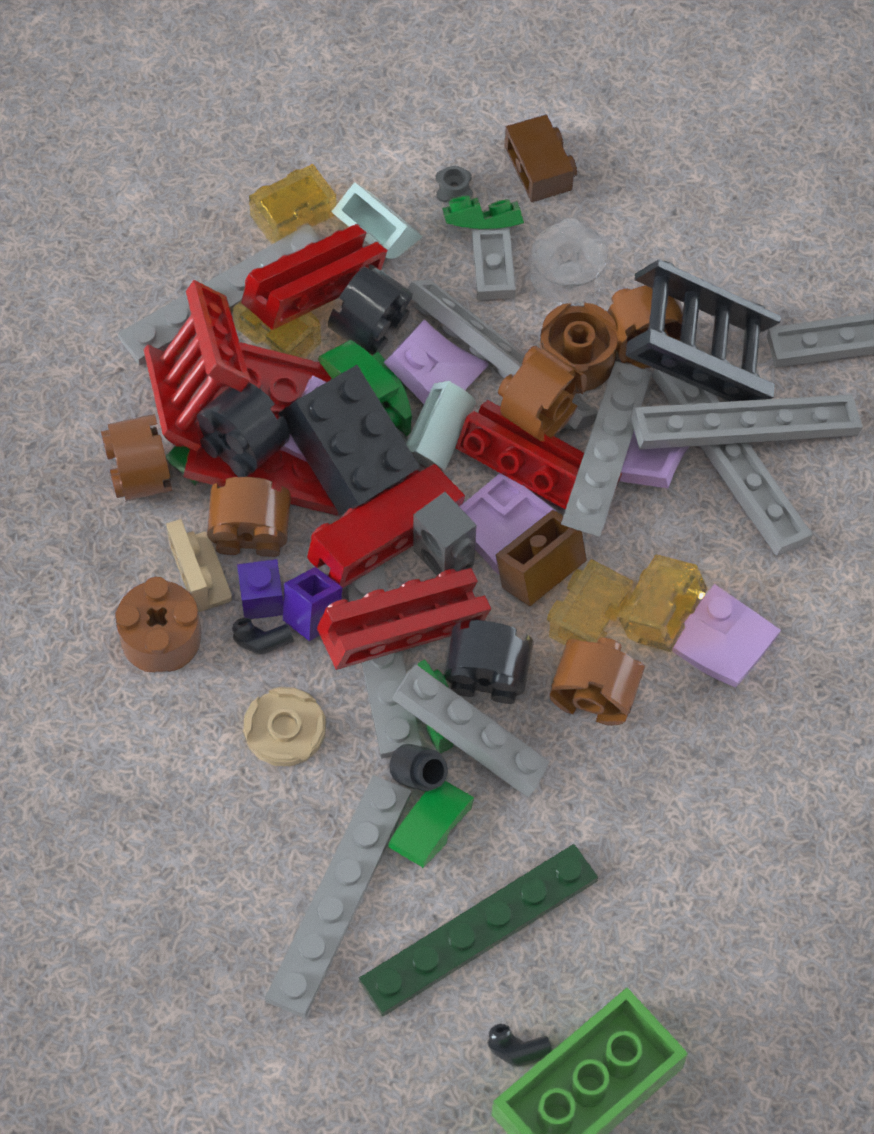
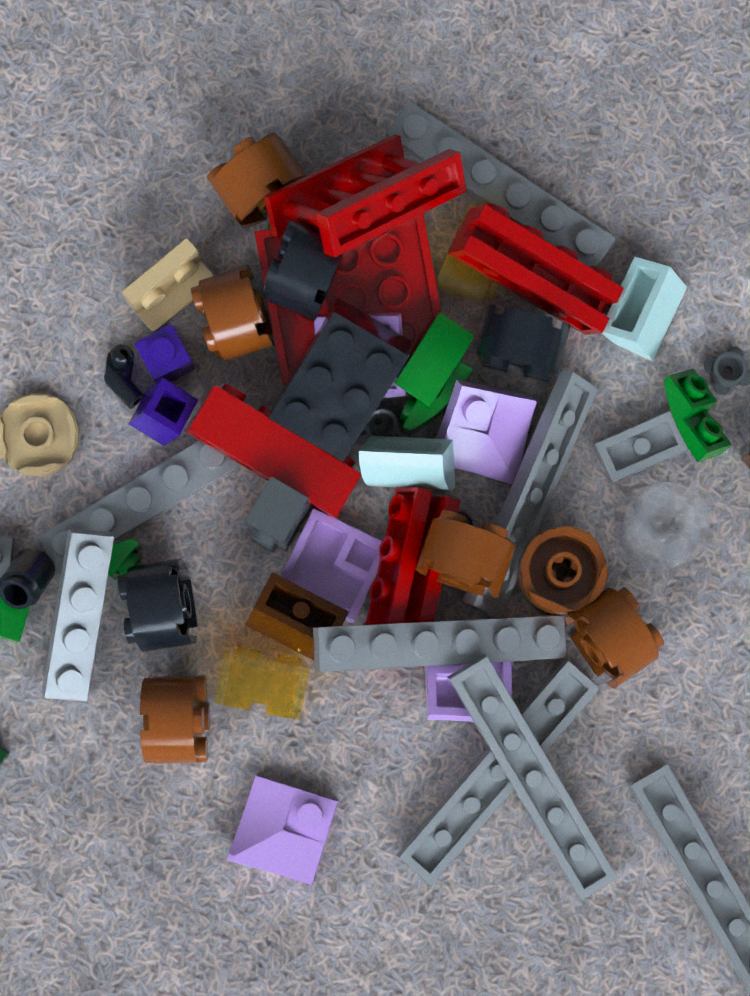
camera: 70 degrees right, 20 degrees up
(158, 626) = (78, 254): dark orange brick -> none
(292, 202) = (631, 210): clear yellow brick -> none
(400, 617) = (175, 507): red brick -> none
(660, 601) = (292, 754): clear yellow brick -> none
(682, 357) = (570, 690): black fence -> none

